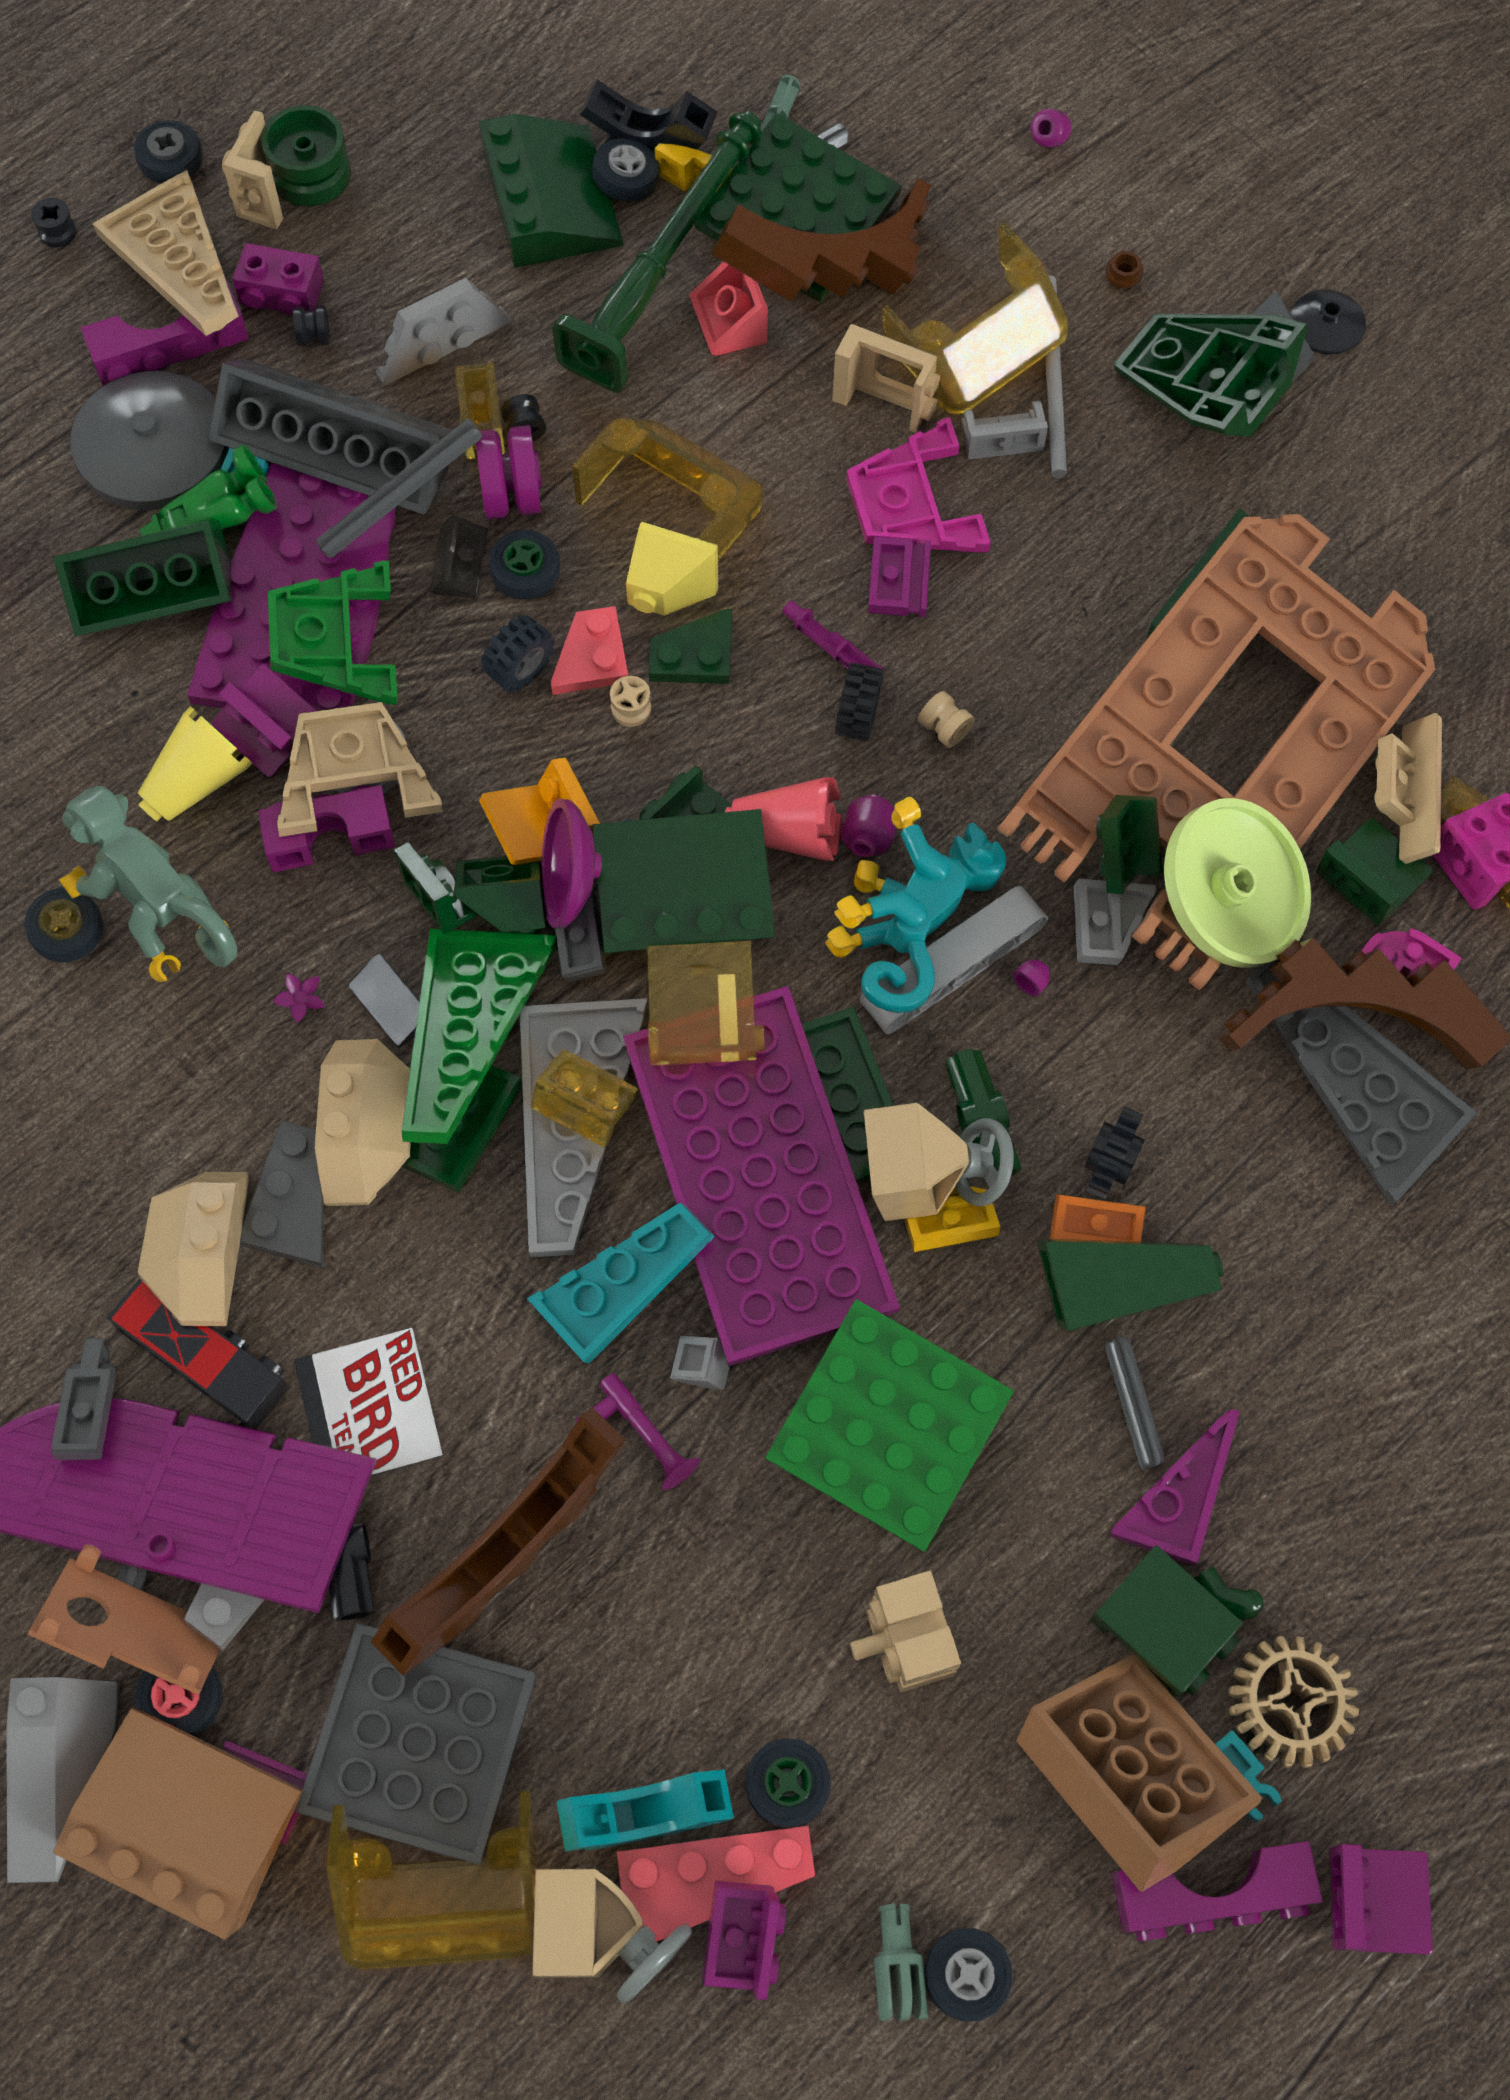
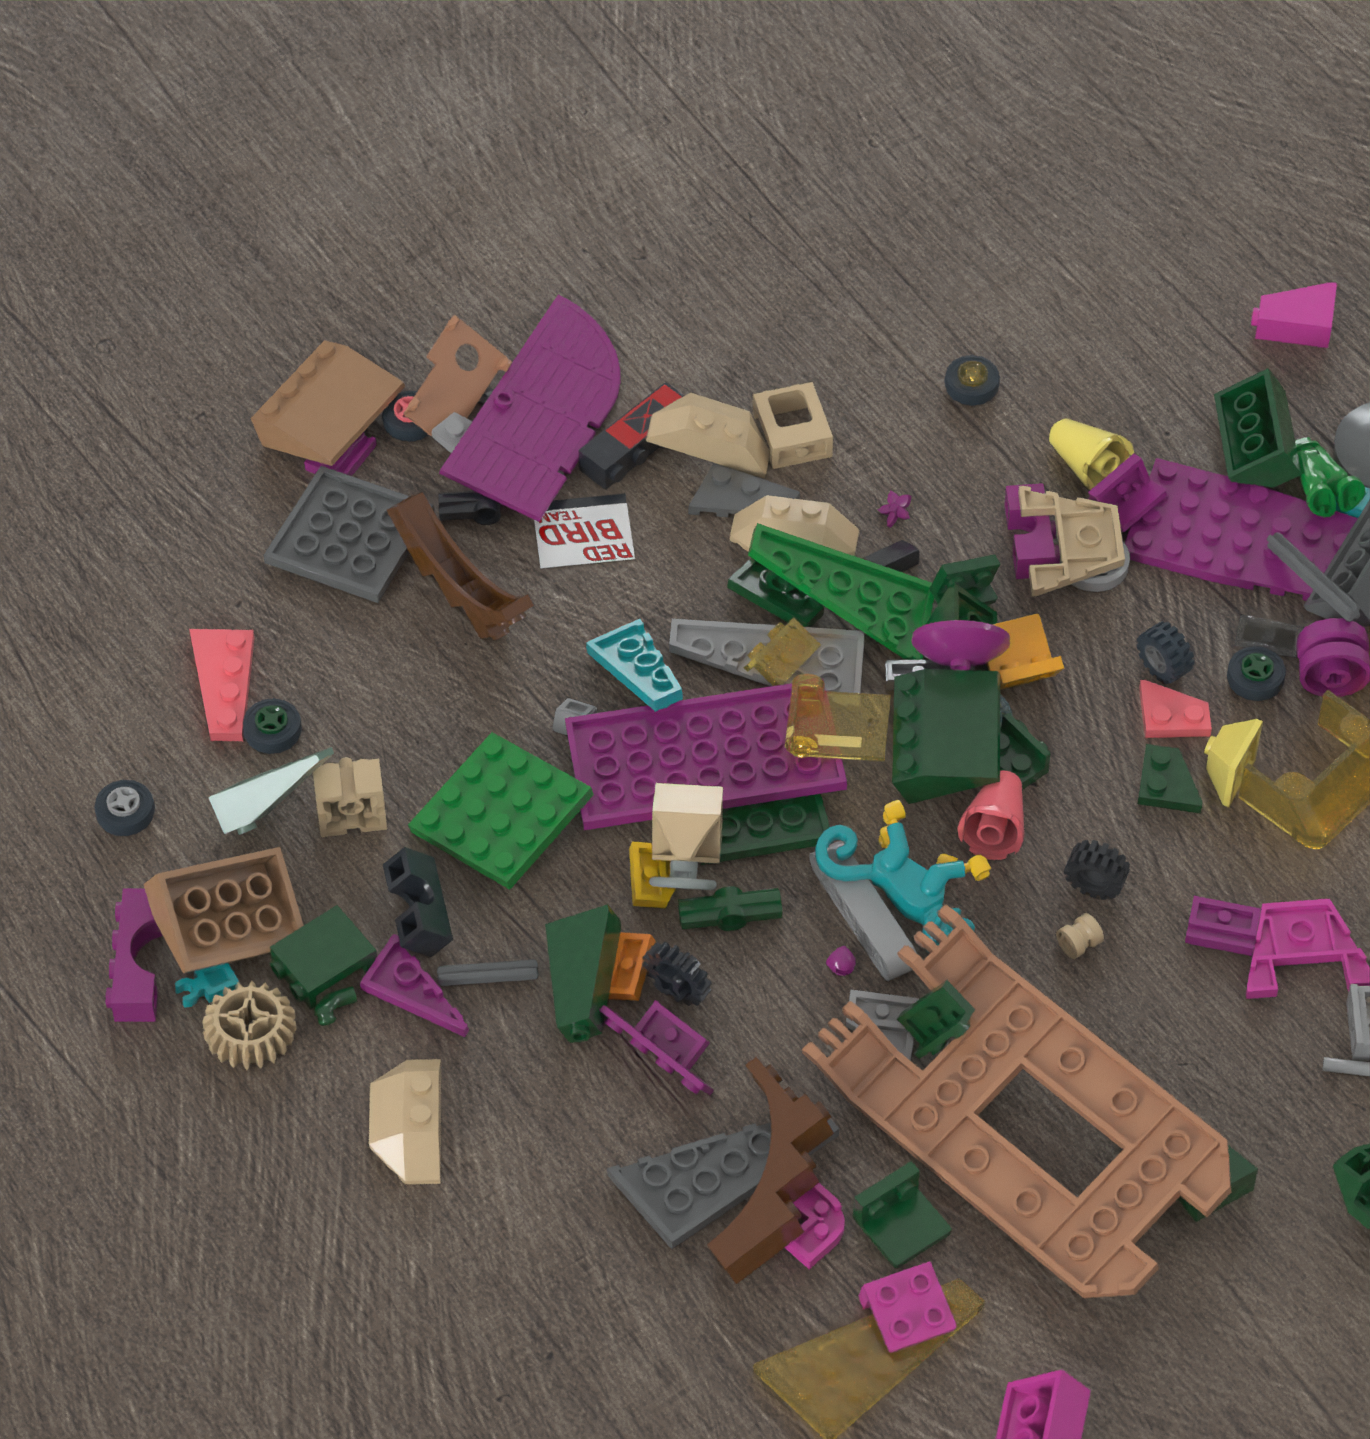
camera: 100 degrees right, 15 degrees down
(53, 1746) = (392, 346): light grey wedge -> none
(85, 1405) = (612, 374): dark grey hinge -> none
(144, 877) = (989, 395): sand green animal -> none
(196, 1131) = (796, 442): none -> tan window
(313, 633) = (1194, 523): green wing -> none
(433, 1908) = (248, 521): clear yellow windscreen -> none
(587, 1923) = (210, 596): tan piece -> none
(619, 1398) = (500, 686): magenta piece -> none
(633, 691) = (1128, 725): tan wheel -> none
(645, 1811) = (273, 639): teal arch -> none
(743, 1937) = (181, 683): magenta bracket -> none
(832, 643) = (1162, 873): magenta piece -> none
(868, 826) = (999, 871): magenta head -> none
(899, 1968) = (139, 767): sand green arm -> none
(932, 1755) = (257, 796): none -> wedge
(1088, 1490) = (416, 880): none -> black arch
(1197, 1162) = (668, 1038): none -> magenta bracket
(1237, 882) = (887, 1086): yellowish green dish -> none
(1373, 1460) = (408, 1120): none -> tan wedge
(1380, 1900) = (105, 1046): magenta bracket -> none
(1412, 785) = (975, 1250): tan bracket -> none

